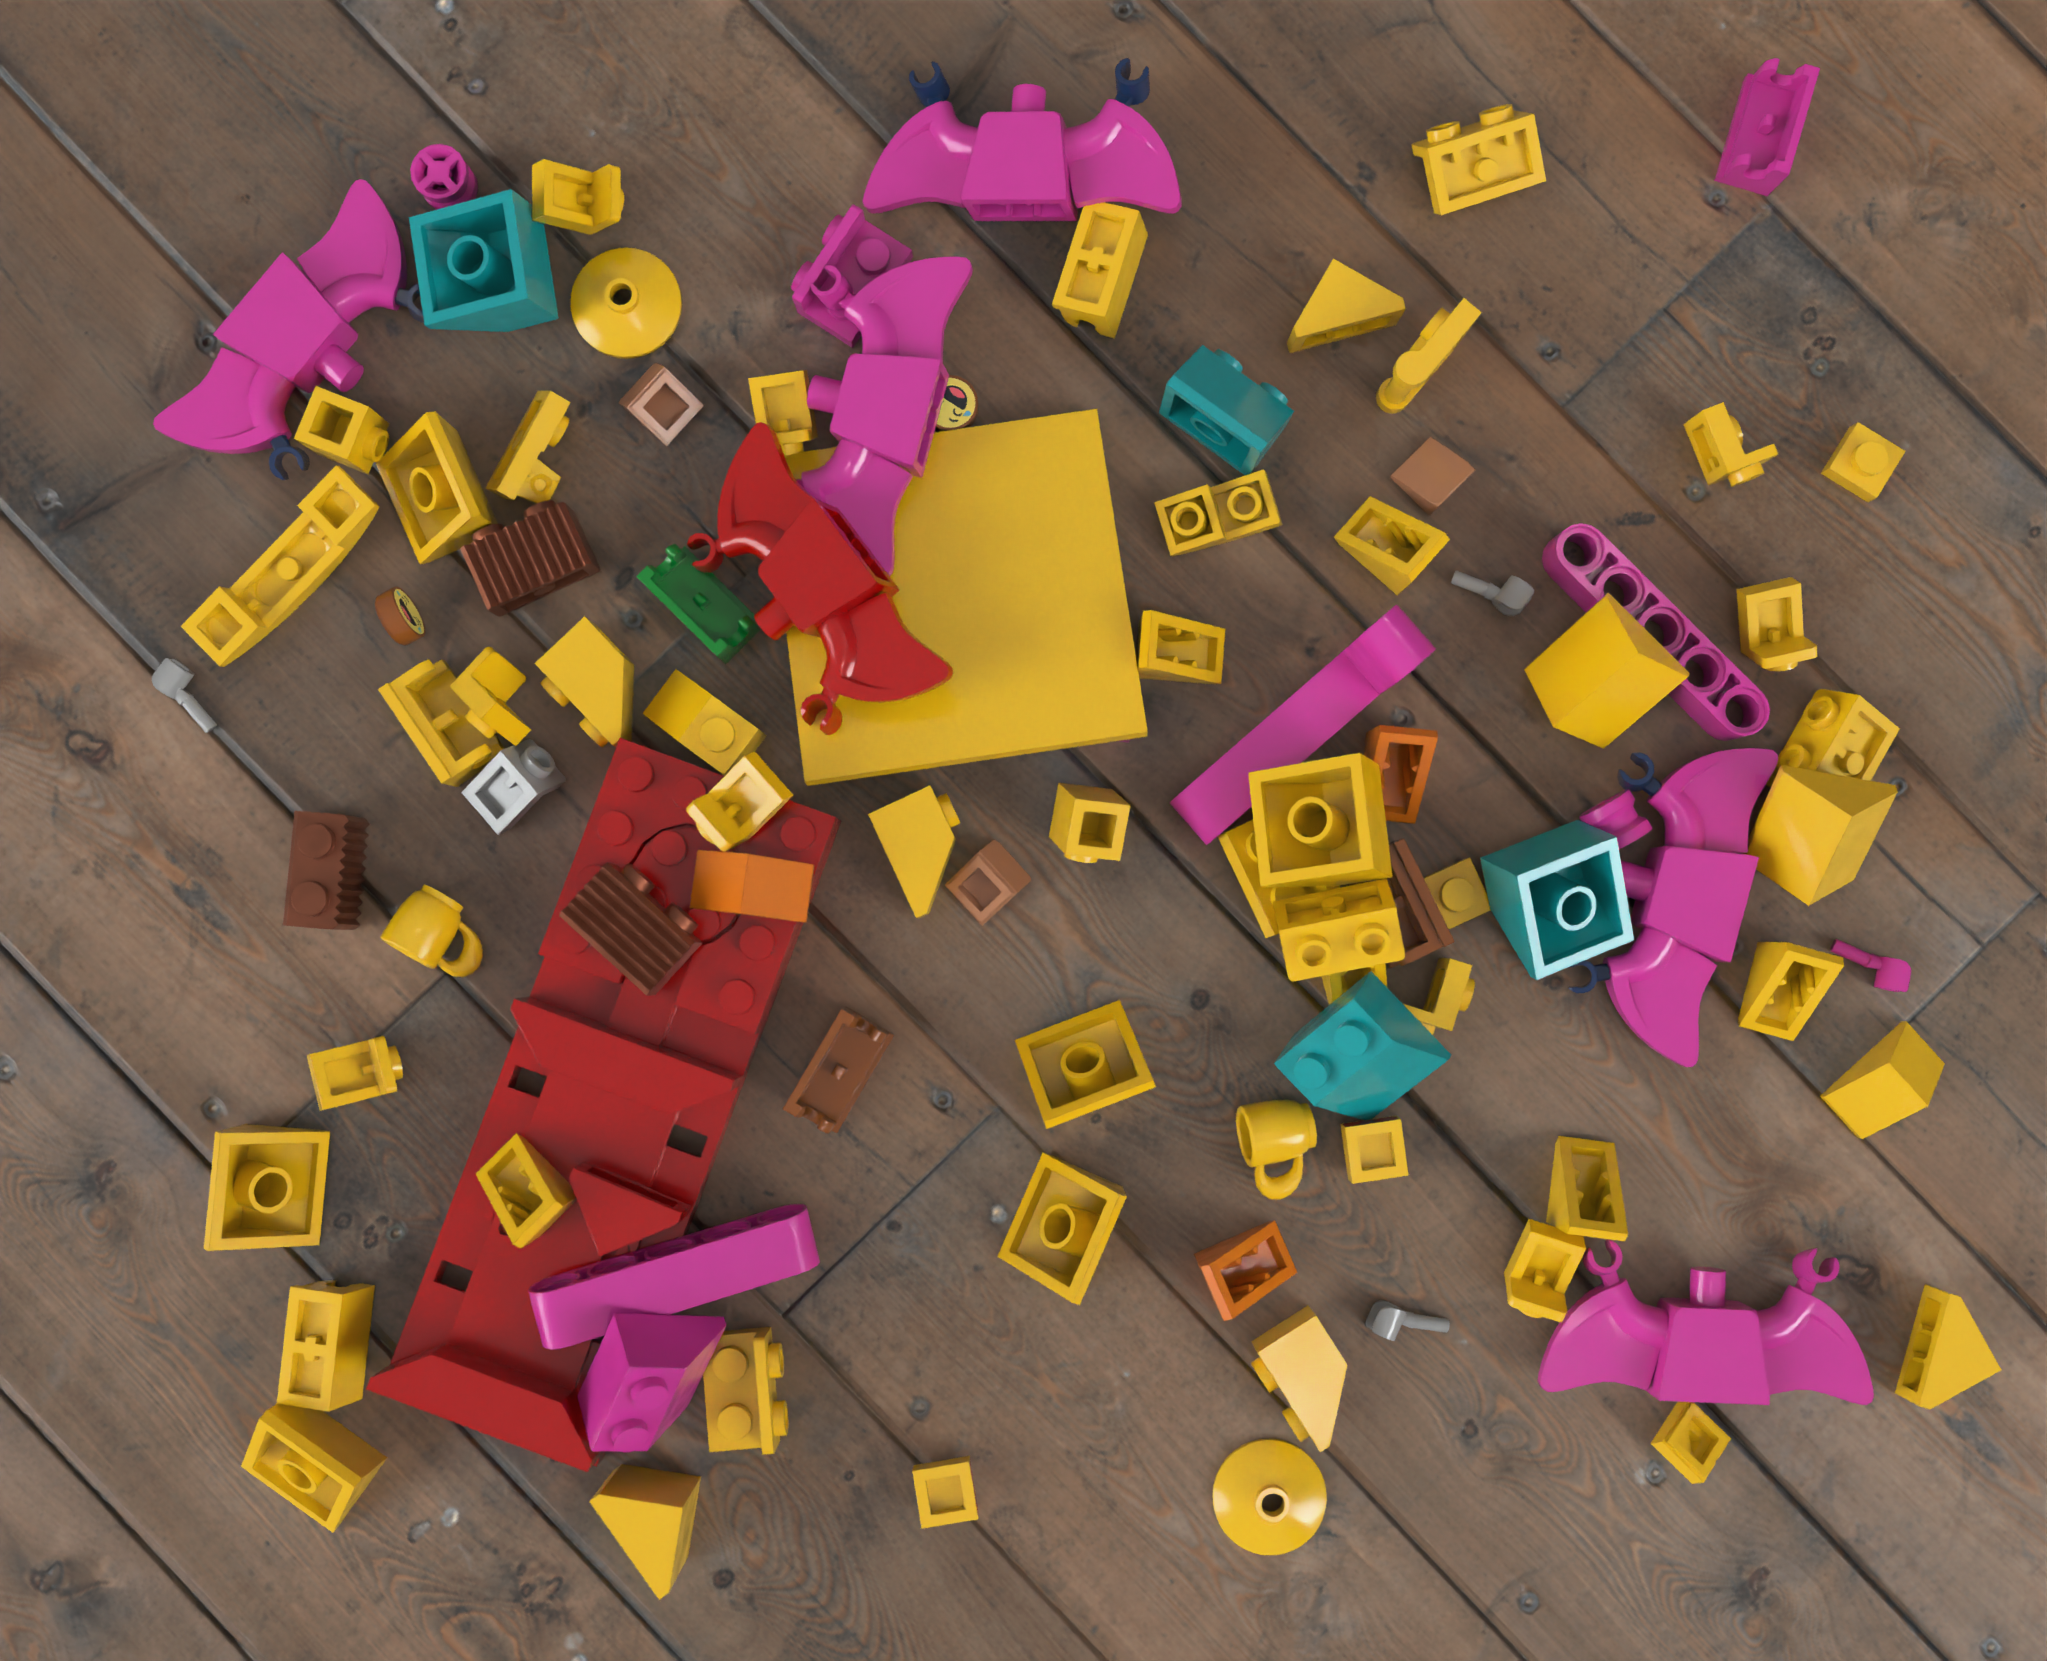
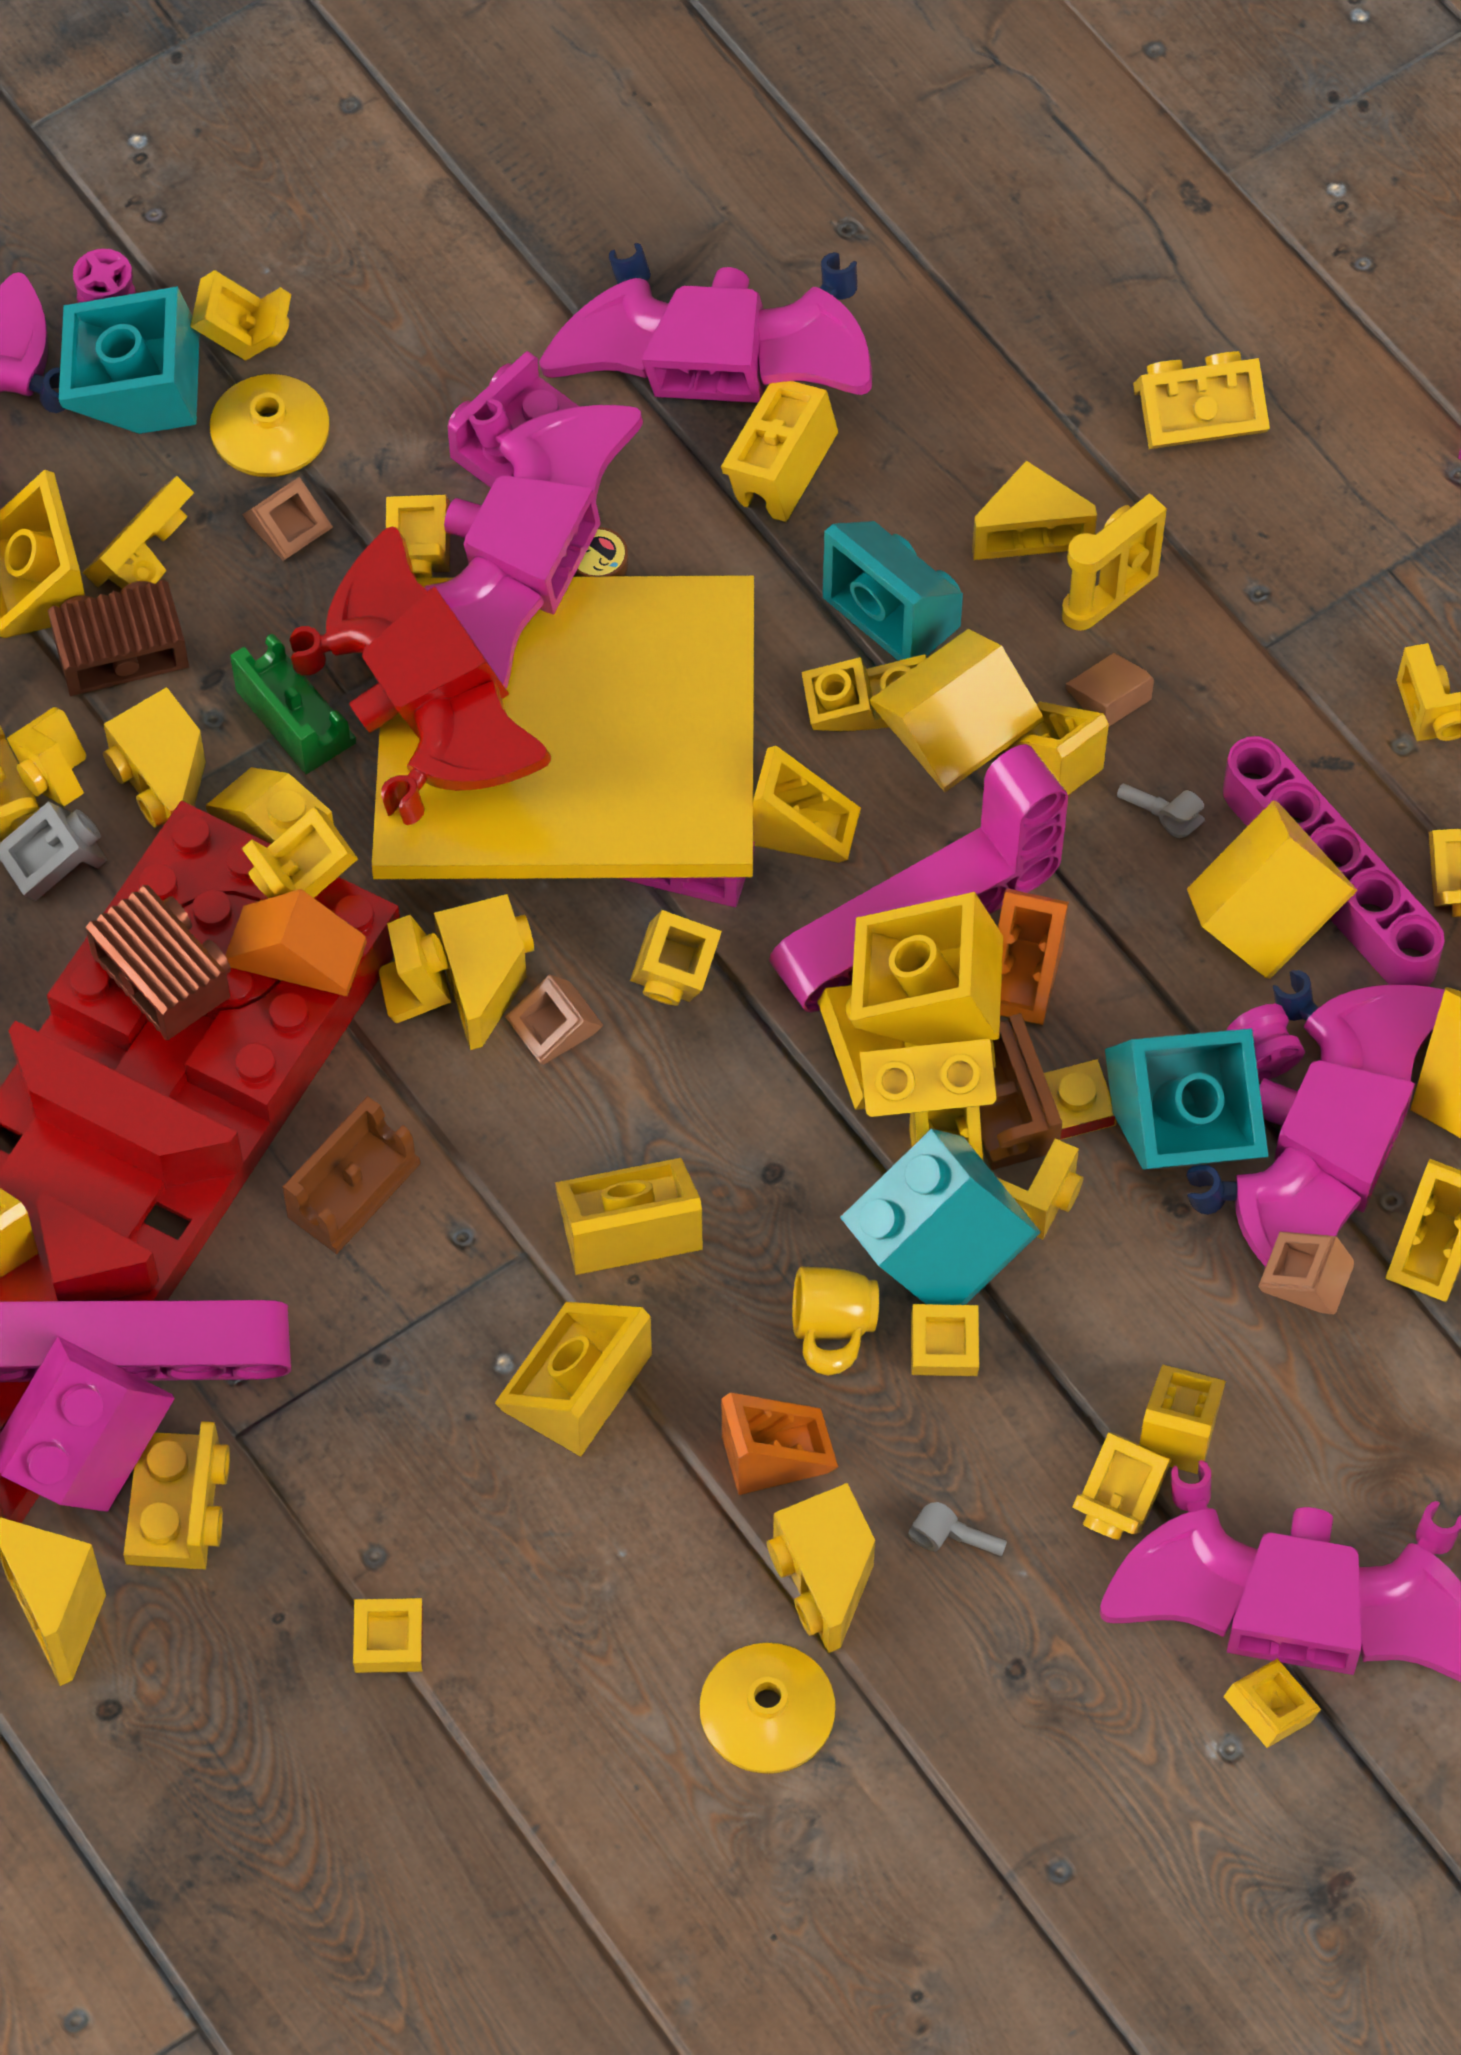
camera: 10 degrees right, 25 degrees down
(859, 868) = (417, 976): none -> yellow bracket
(1304, 528) = (959, 708): none -> yellow slope
(1680, 1048) = (1308, 1271): none -> nougat slope

